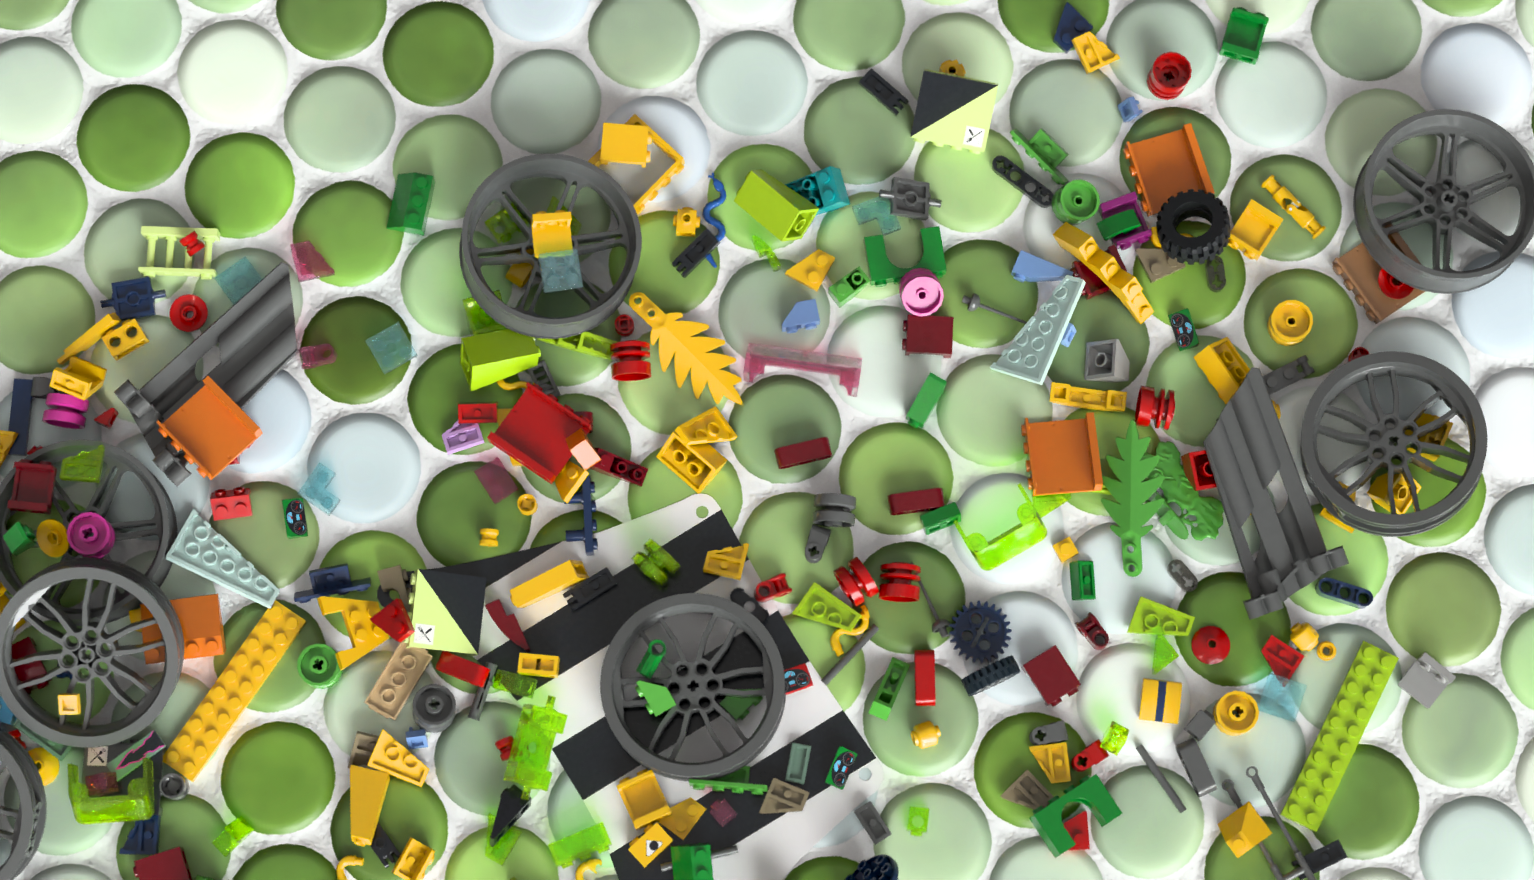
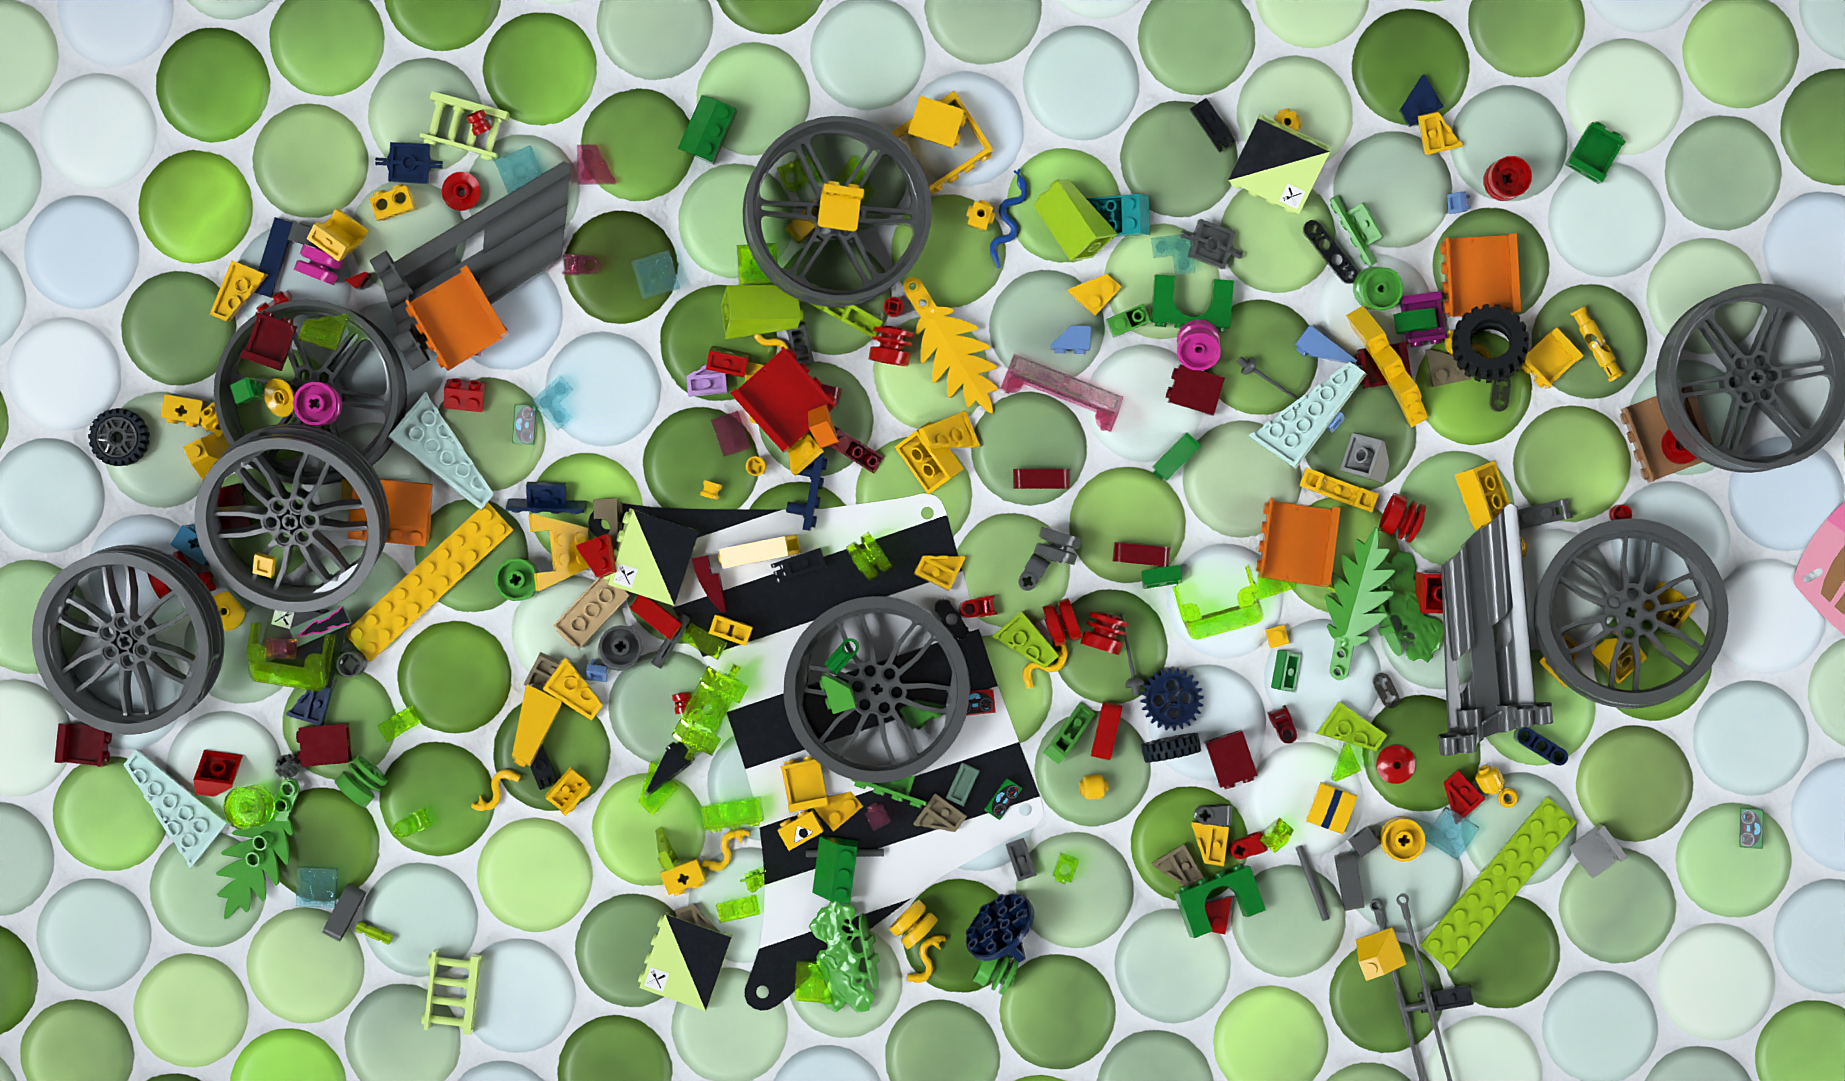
camera: 15 degrees right, 10 degrees up
(90, 337) = (358, 193): yellow piece -> none
(560, 270) = (840, 246): clear light blue plate -> none
(696, 252) = (983, 248): black hinge -> none
(764, 250) = (1050, 261): clear neon green slope -> none
(850, 654) = (1039, 689): dark grey bar -> none
(1183, 329) = (1452, 443): slope -> none
(1297, 330) = (1549, 465): yellow wheel -> none

